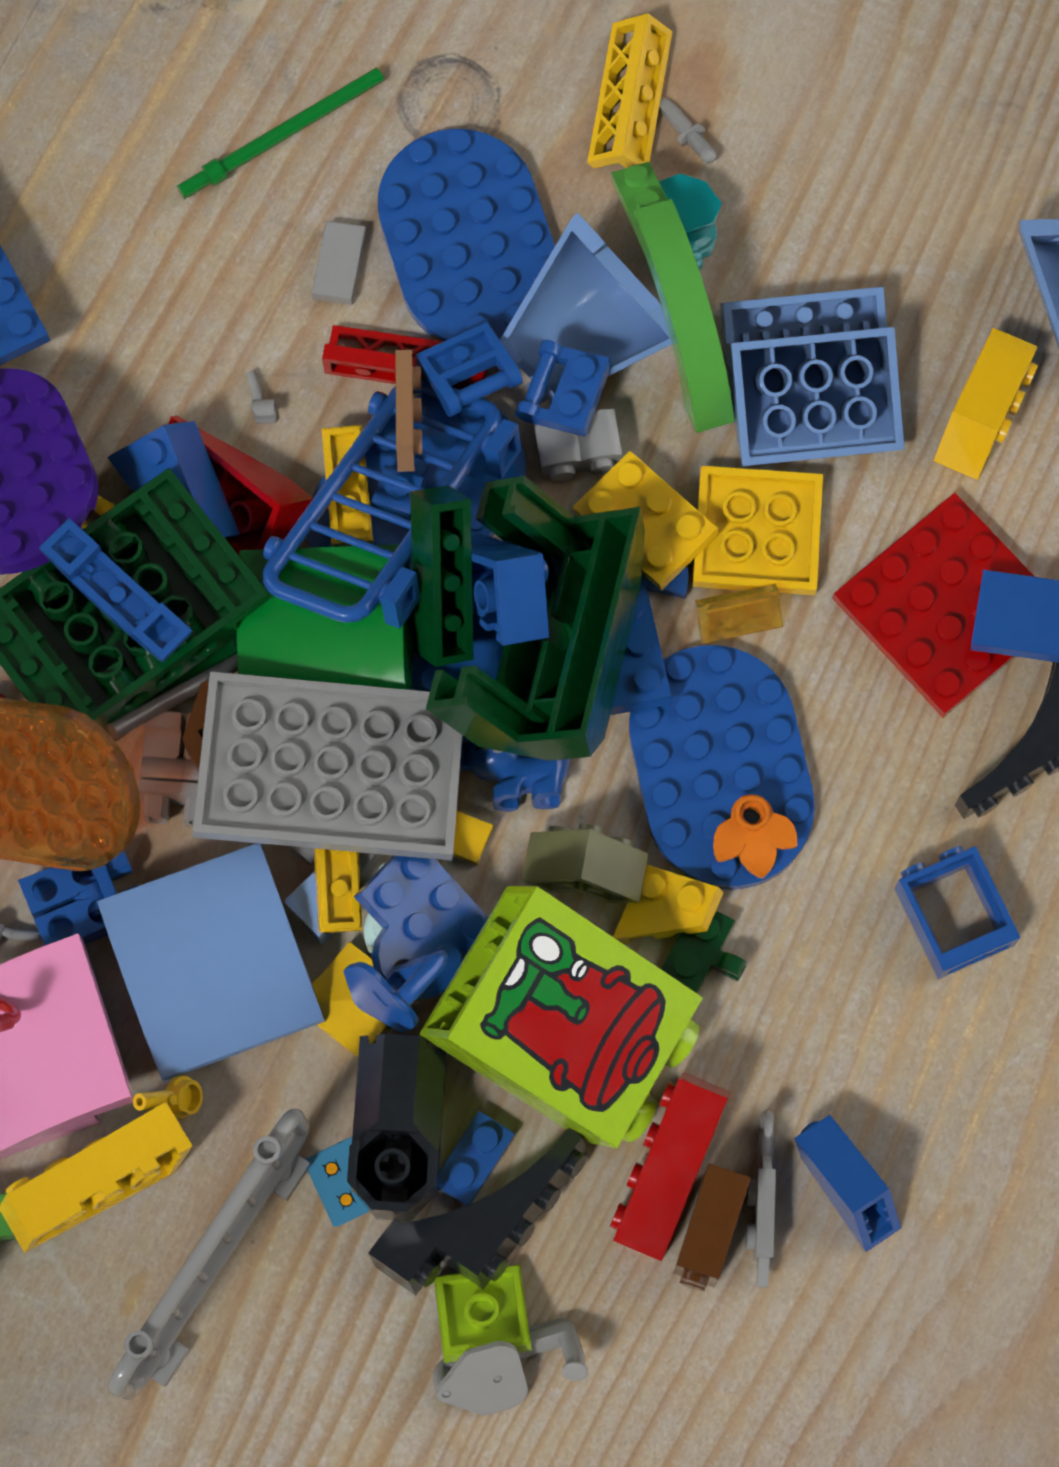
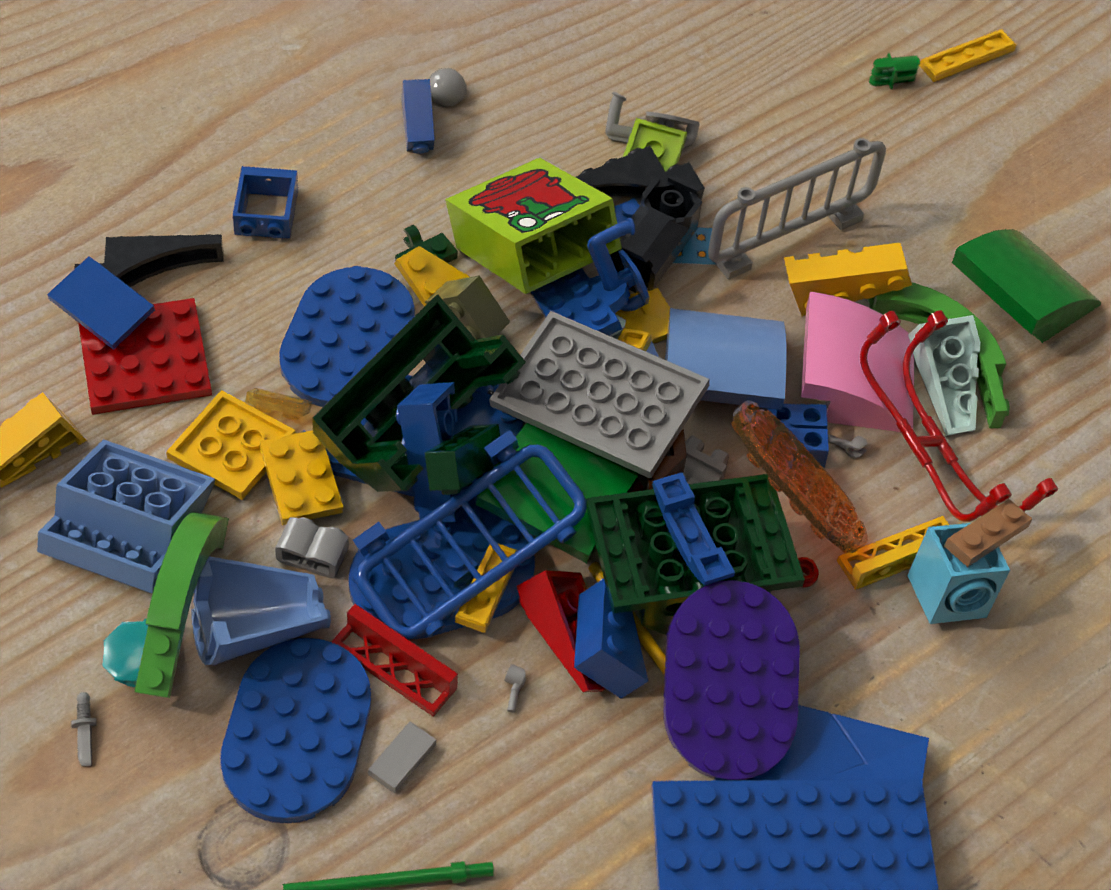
camera: 160 degrees left, 20 degrees down
(181, 1095) = (777, 308): yellow plate -> none
(407, 411) = (422, 587): medium nougat plate -> none
(463, 358) = (360, 614): blue plate -> none
(575, 394) = (295, 560): blue plate -> none
(638, 90) = (96, 767): yellow fence -> none
(671, 1165) = (506, 153): red wedge -> none
(711, 1227) = (506, 123): reddish brown brick -> none
(753, 842) = (356, 280): orange plate -> none
(762, 1196) = (467, 132): light grey plate -> none
(847, 1280) = (447, 87): none -> light grey hair

